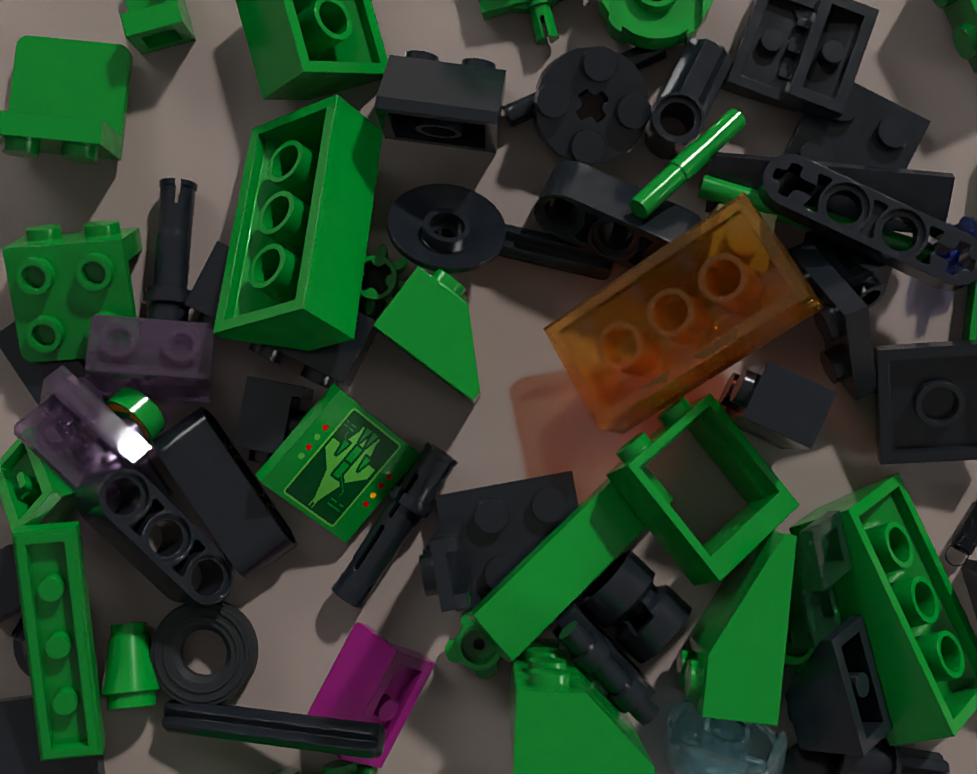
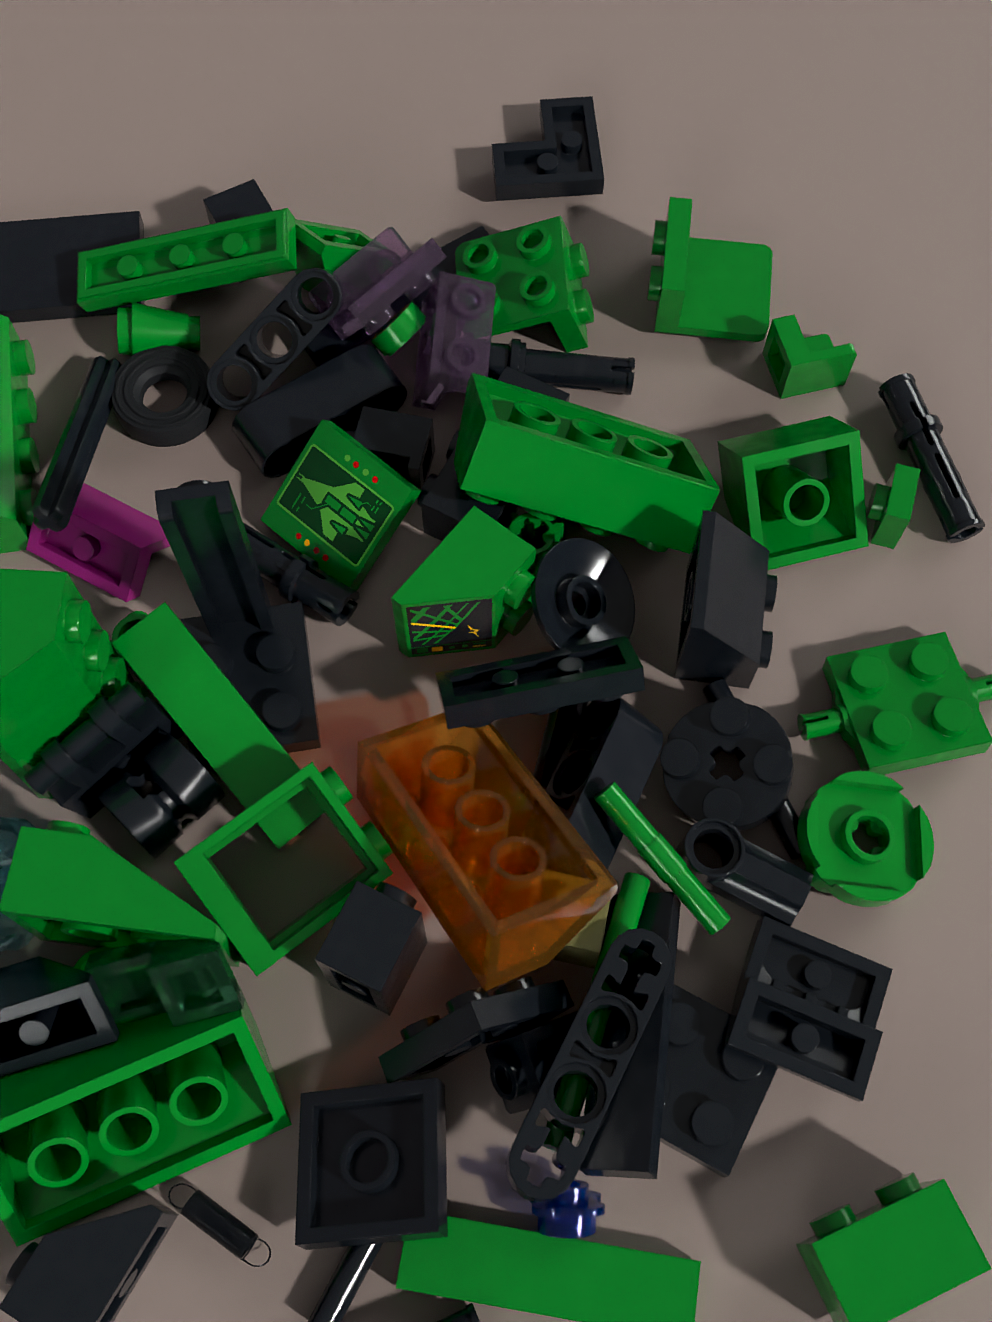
camera: 90 degrees right, 20 degrees down
(537, 265) = (539, 682): none -> black plate

